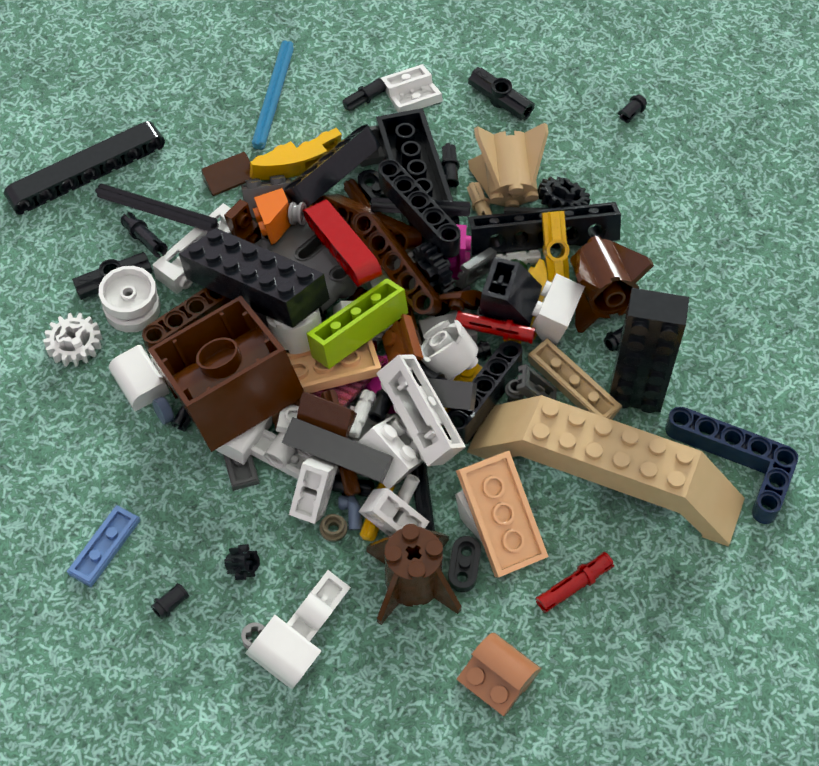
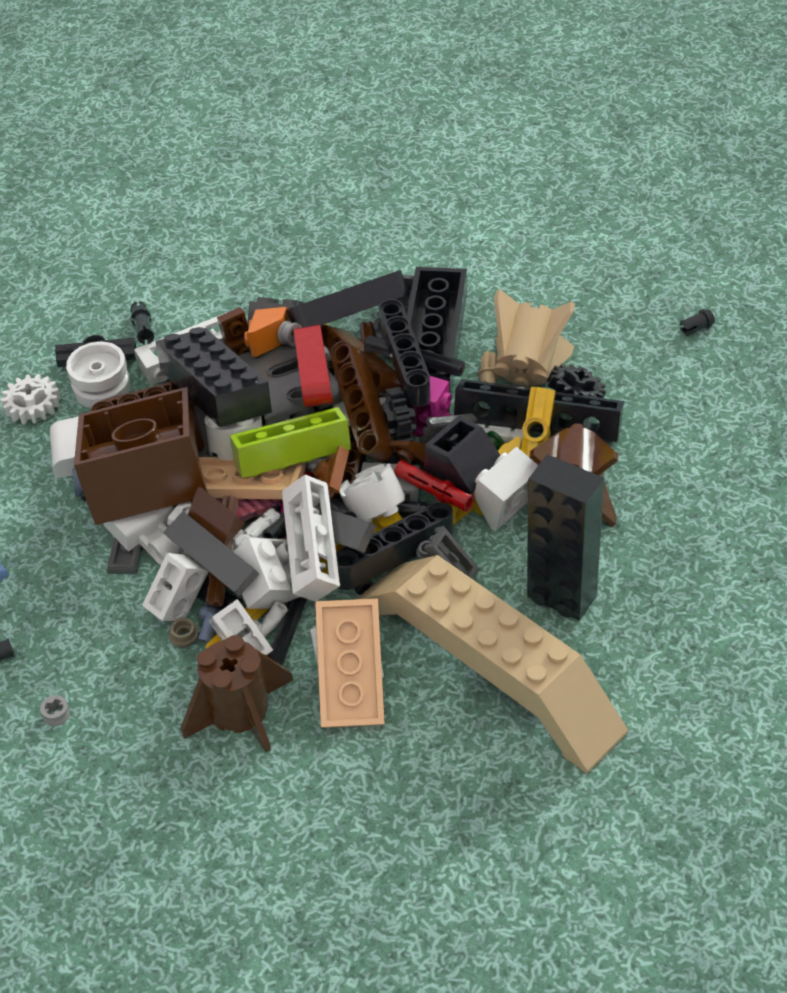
camera: 25 degrees right, 10 degrees down
(83, 166) = (122, 253): black beam -> none
(157, 207) = (166, 301): black axle -> none
(227, 173) = (250, 287): reddish brown slope -> none
(242, 562) = (84, 634): black gear -> none
(272, 96) = (333, 231): dark azure axle -> none
(286, 647) = (78, 728): white plate -> none
(293, 161) = (314, 285): yellow slope -> none
(364, 94) = (423, 249): black axle -> none
(412, 89) = (475, 254): white slope -> none
(450, 164) = (475, 332): black axle -> none
(464, 565) = (292, 706): black plate -> none
(498, 673) = (273, 817): nougat brick -> none
(501, 93) = (562, 277): black piece -> none
(572, 380) = (496, 562): tan slope -> none
(579, 579) = (392, 758): red pin -> none
(740, 453) = (623, 659): dark blue beam -> none

